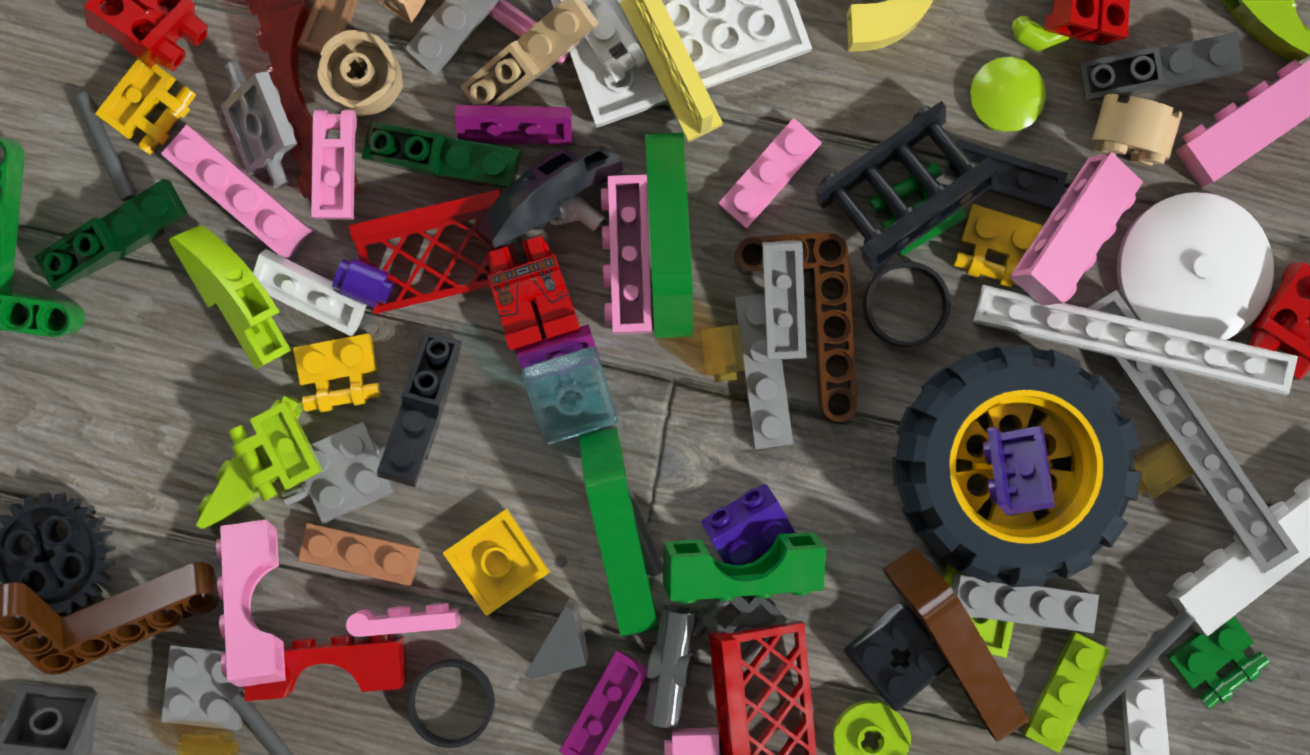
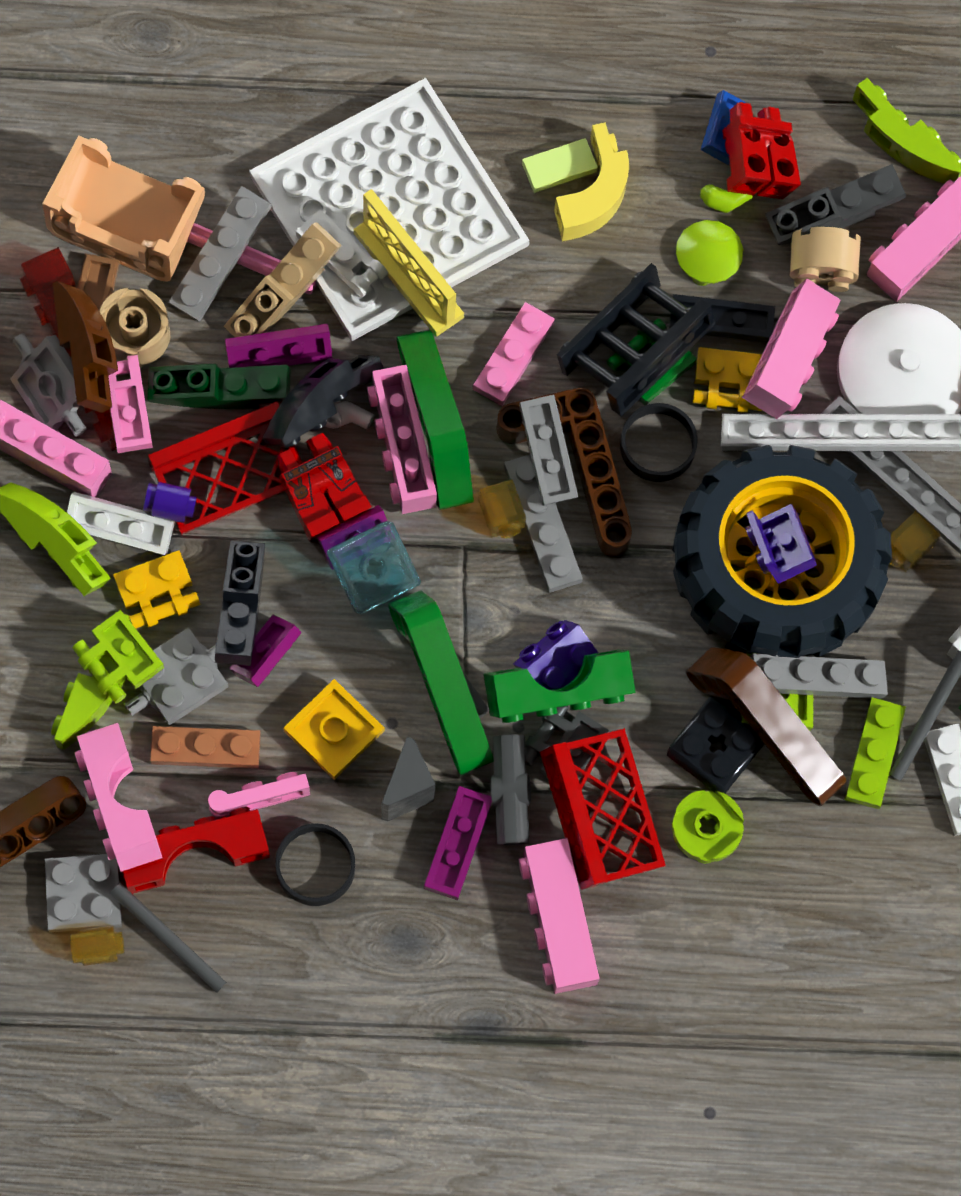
camera: 20 degrees left, 15 degrees down
(300, 95) = (91, 345): none -> reddish brown slope
(446, 458) = (270, 646): none -> magenta plate

